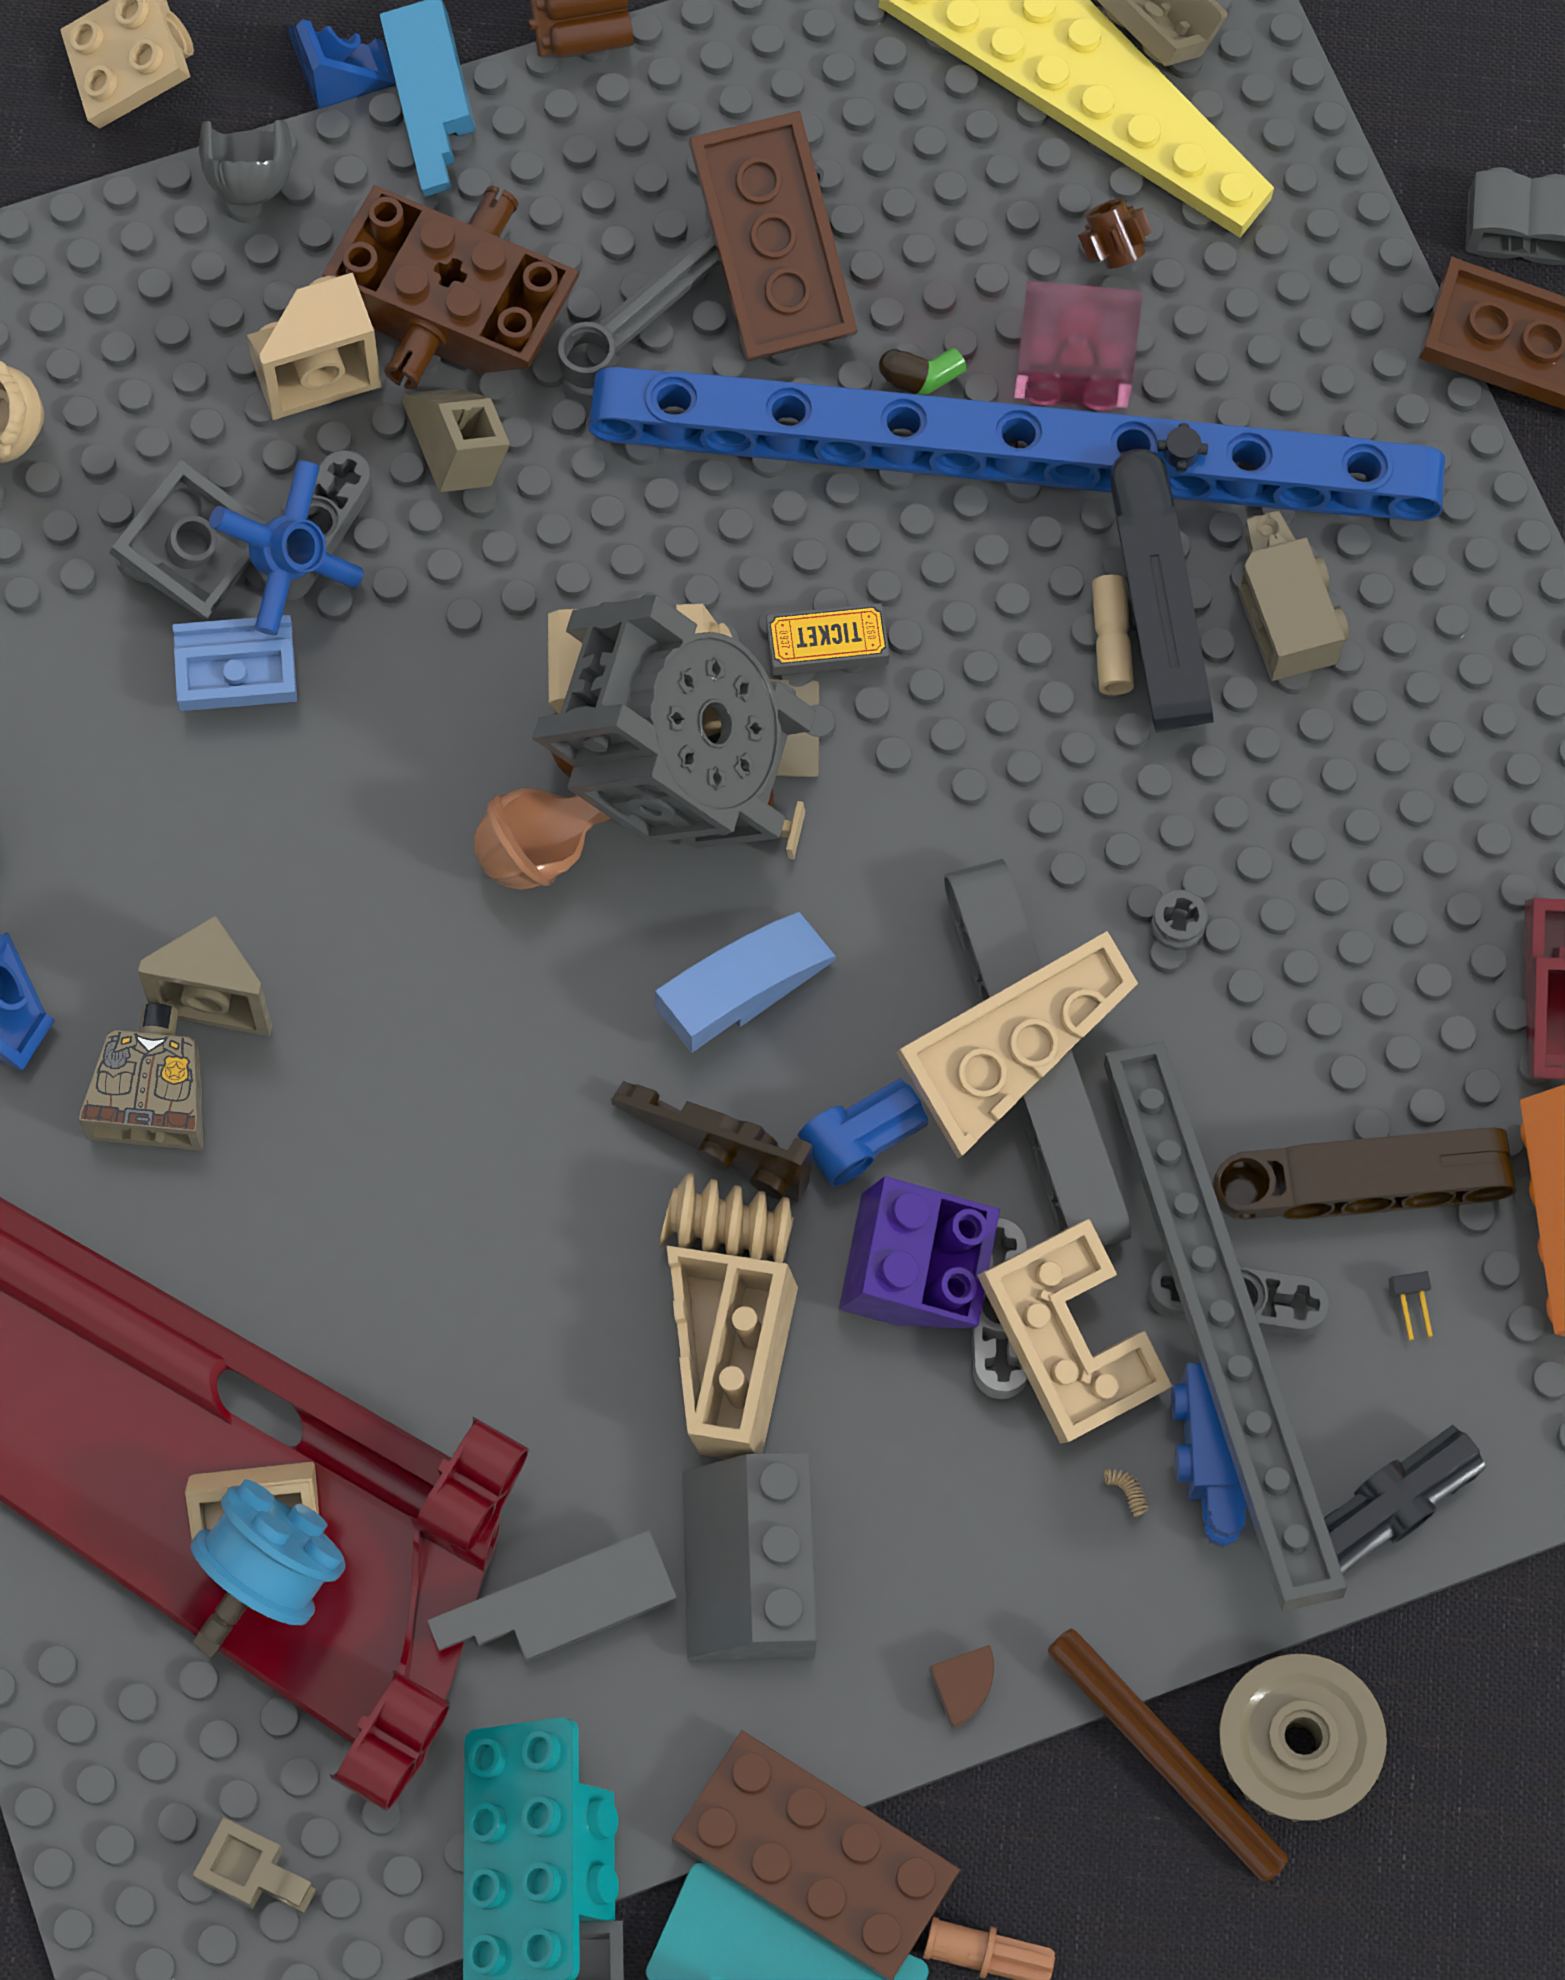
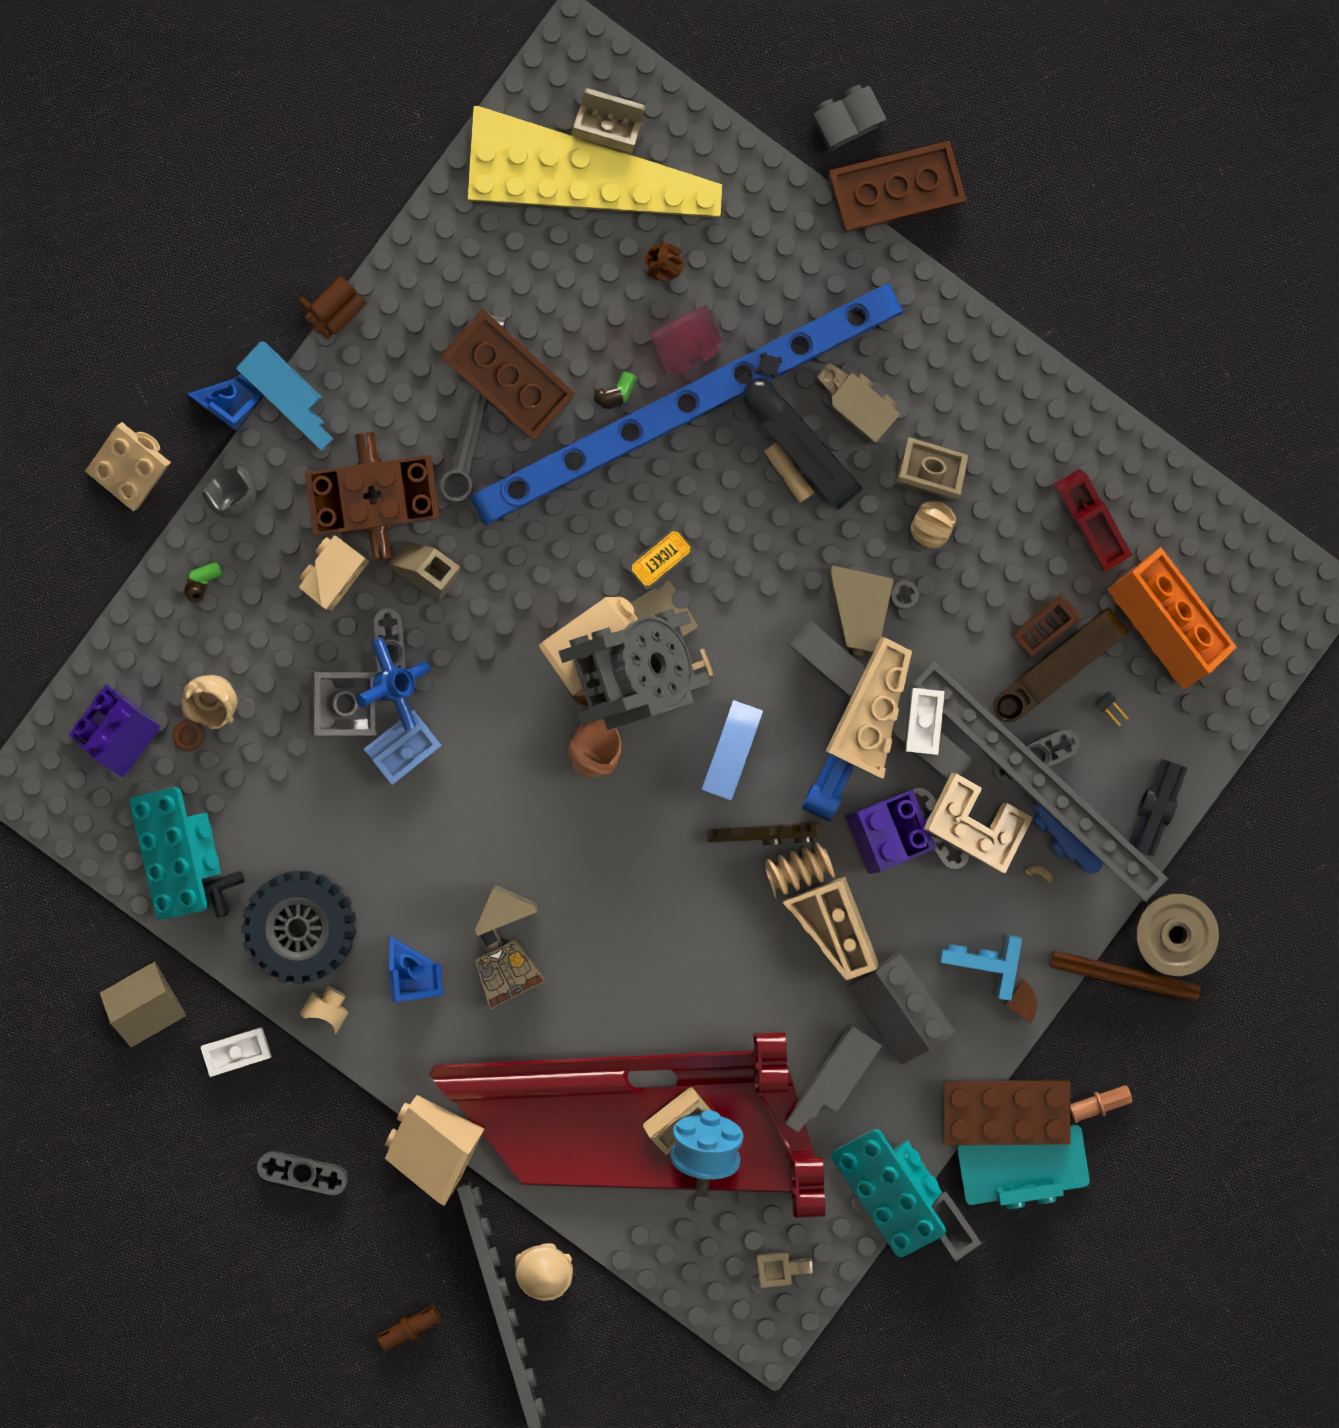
camera: 25 degrees left, 20 degrees up
(111, 255) = (198, 580): none -> arm
(946, 1573) = (989, 961): none -> dark azure bracket
(1089, 1105) = (924, 721): none -> white plate
(1102, 882) = (861, 607): none -> dark tan slope
(1294, 835) = (933, 524): none -> tan piece
(1337, 764) = (932, 470): none -> dark tan slope
(1399, 1079) = (1066, 606): none -> reddish brown slope

